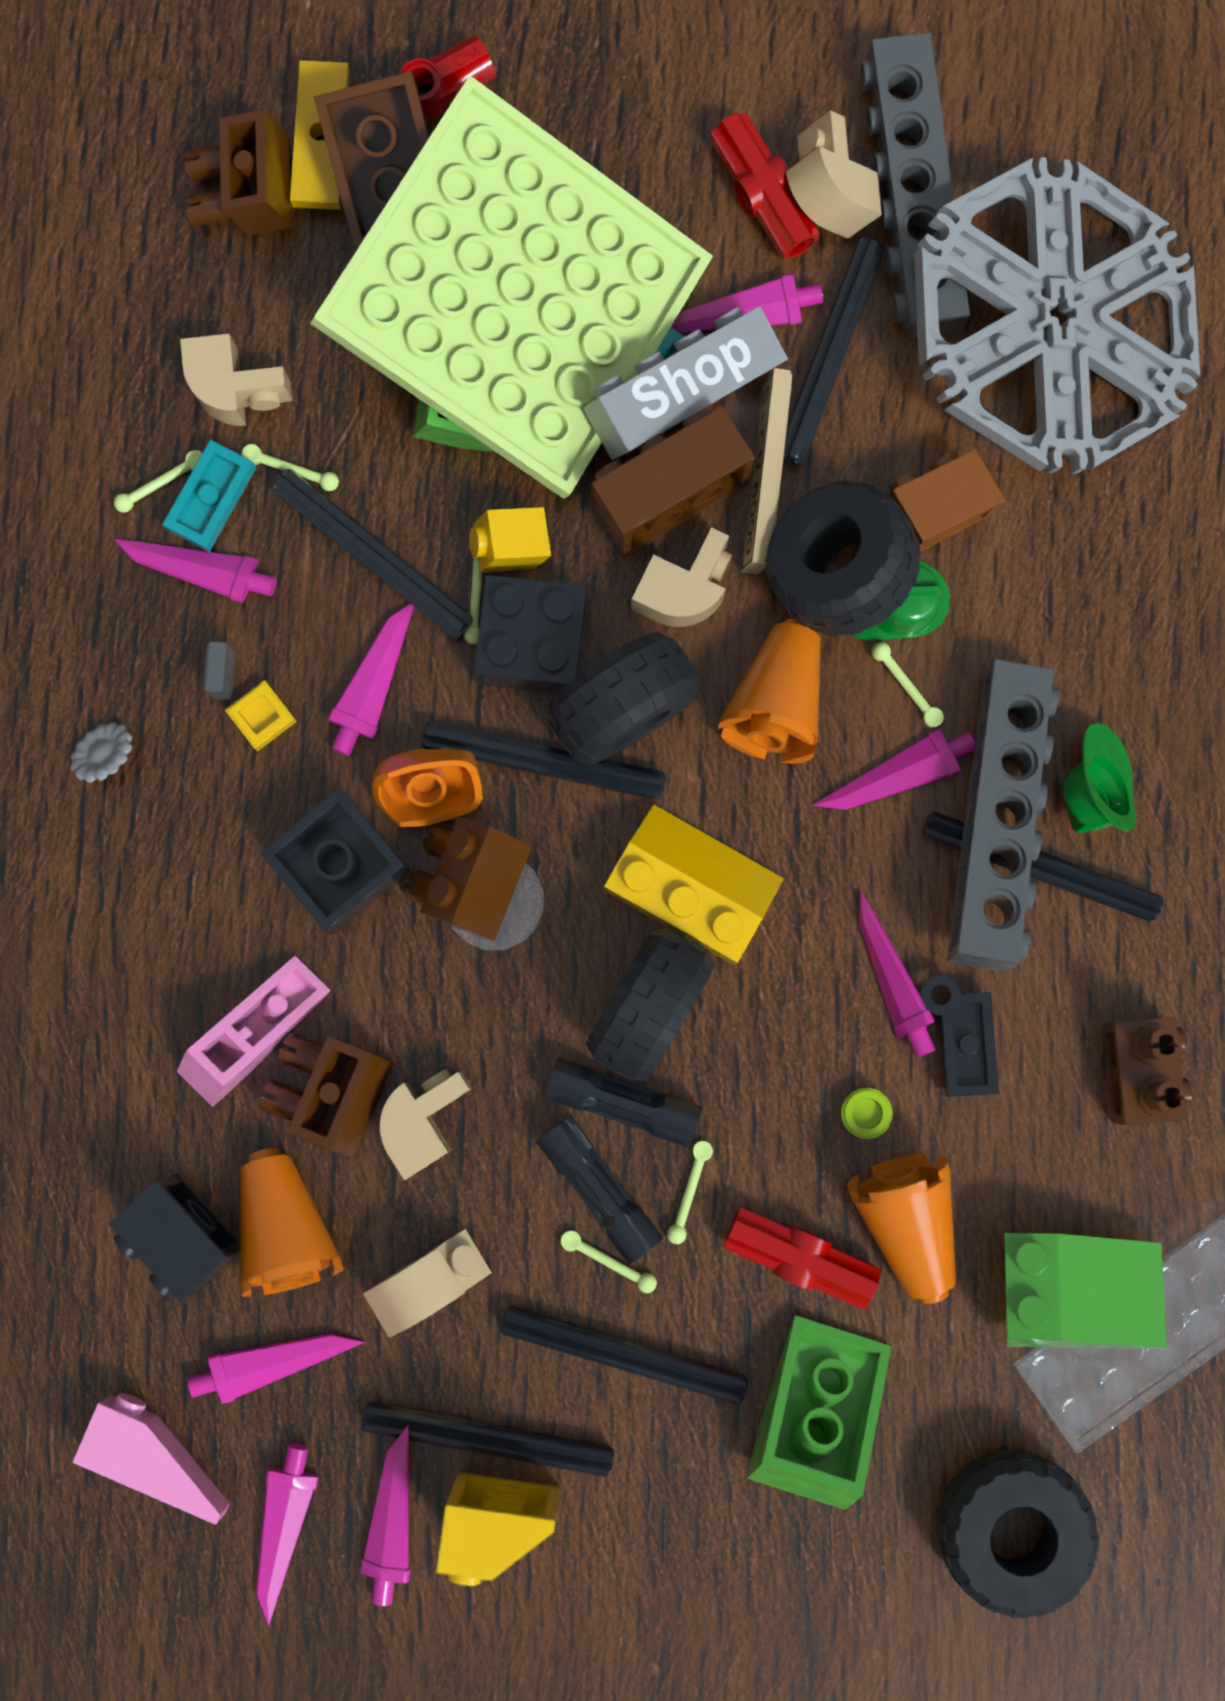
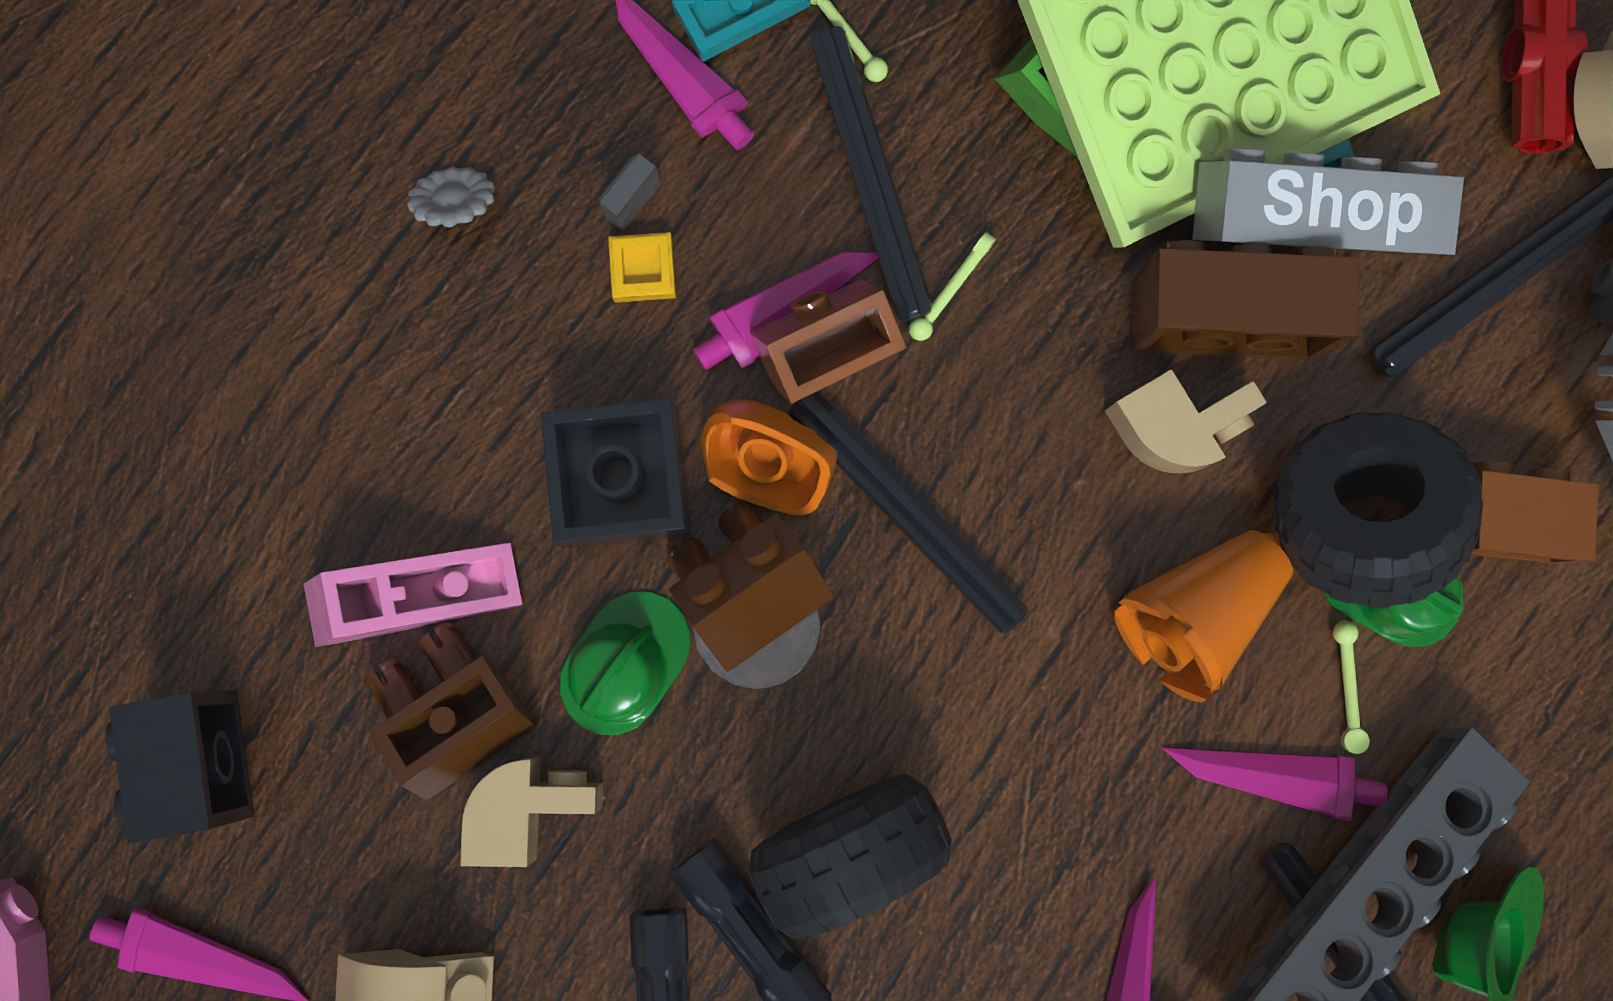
camera: 30 degrees right, 0 degrees up
(280, 1228) = (298, 824): orange cone -> none
(415, 682) = (827, 339): none -> dark orange brick
(424, 984) = (624, 663): none -> green piece
(510, 539) = (1027, 253): yellow brick -> none
(530, 634) = (982, 368): black brick -> none
(623, 698) = (1039, 502): black tyre -> none
(693, 884) = (981, 753): yellow slope -> none
(766, 469) = (1347, 365): tan tile -> none
(777, 298) = (1484, 181): dark pink bar -> none

